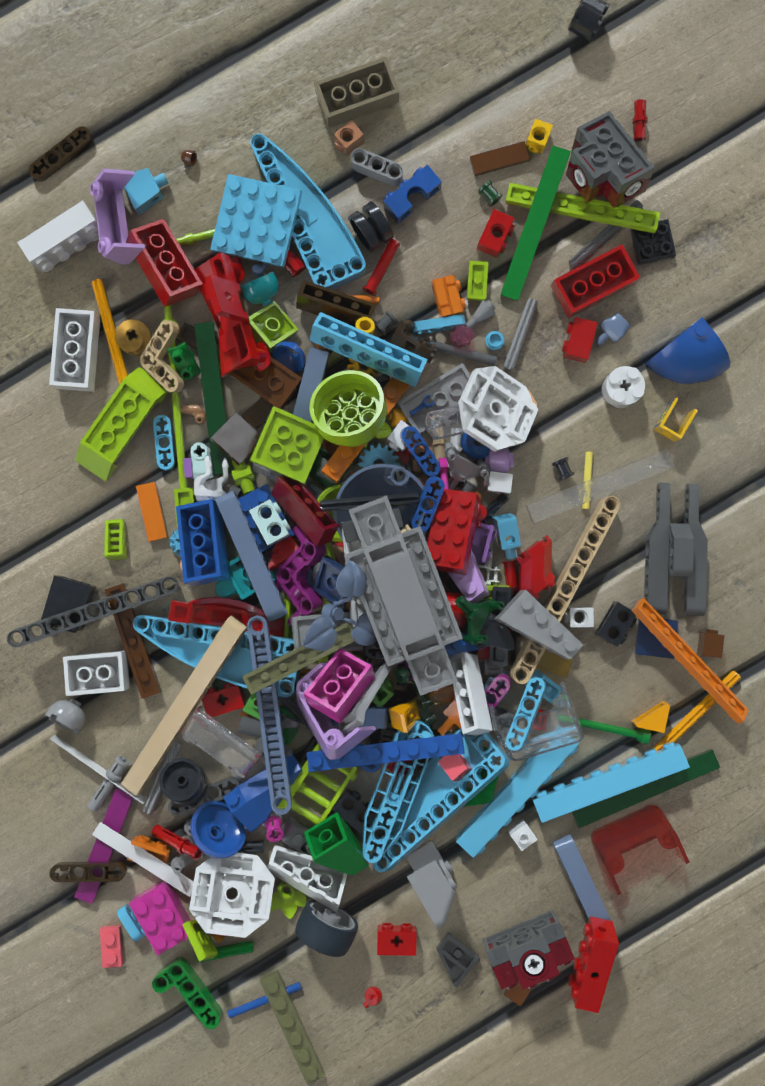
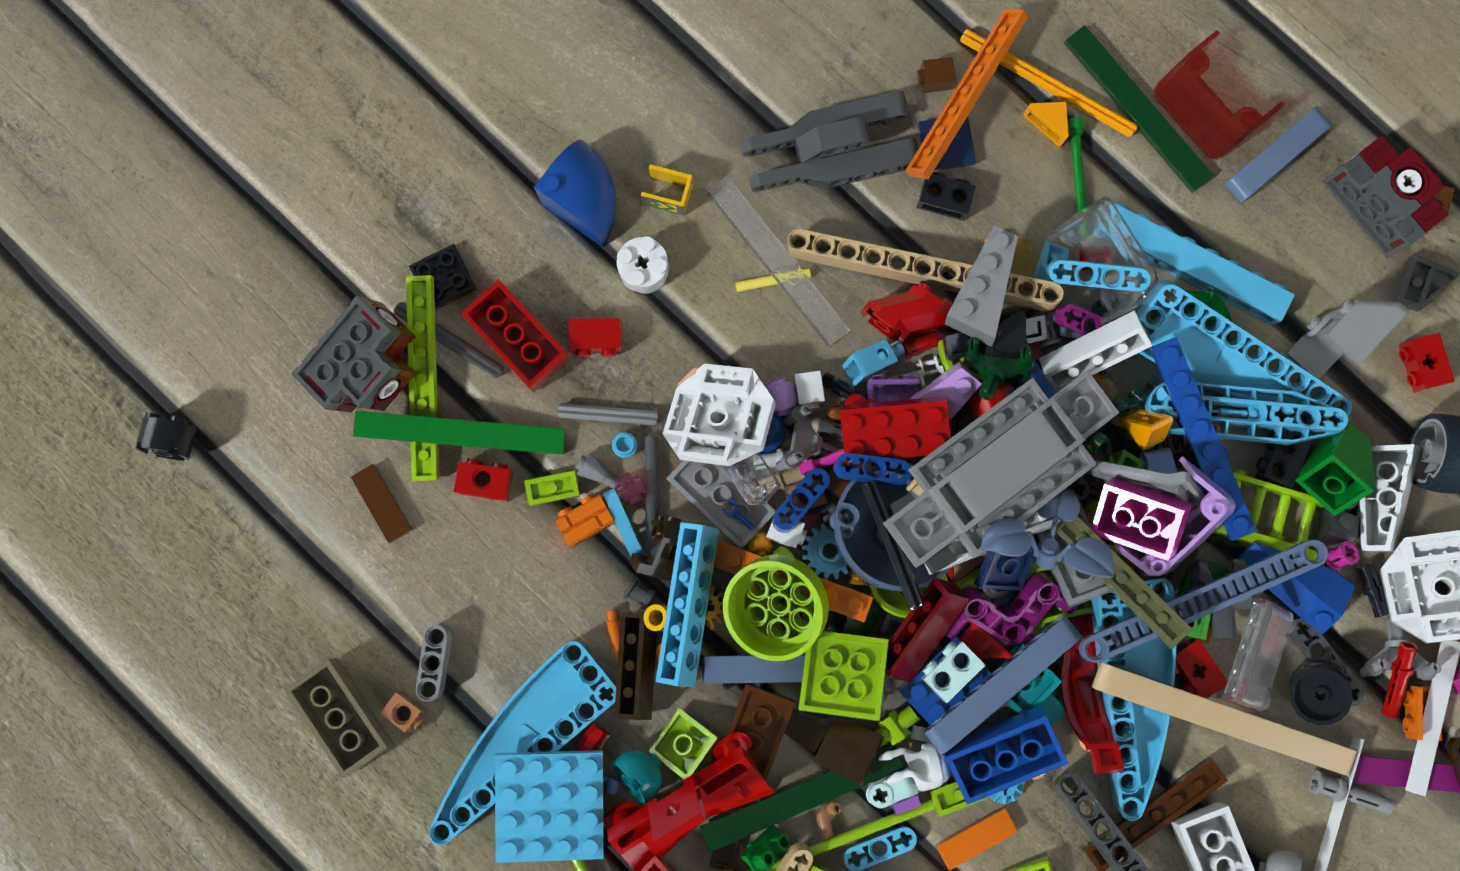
camera: 110 degrees left, 5 degrees down
(155, 792) = (1341, 727): light grey axle -> none
(218, 819) = (1367, 614): blue dish -> none
(287, 900) = (1422, 514): lime plate -> none
(292, 361) = (719, 709): blue piece -> none
(371, 226) = (515, 644): black wheel -> none
(381, 267) = (566, 619): red pin -> none
(423, 182) = (438, 594): blue arch -> none
(453, 719) = (1130, 367): orange brick -> none
(455, 766) = (1193, 345): coral brick -> none
(490, 193) = (432, 503): dark green bush -> none
(522, 834) = (1245, 242): white brick -> none
(540, 129) = (330, 457): yellow brick -> none
(563, 468) = (768, 313): black bush -> none
(587, 620) = (954, 233): white brick -> none
(593, 964) = (1378, 112): red brick -> none
(610, 782) = (1146, 151): medium azure brick -> none
(613, 329) = (570, 297): sand blue piece -> none
(639, 120) = (287, 335): red pin -> none

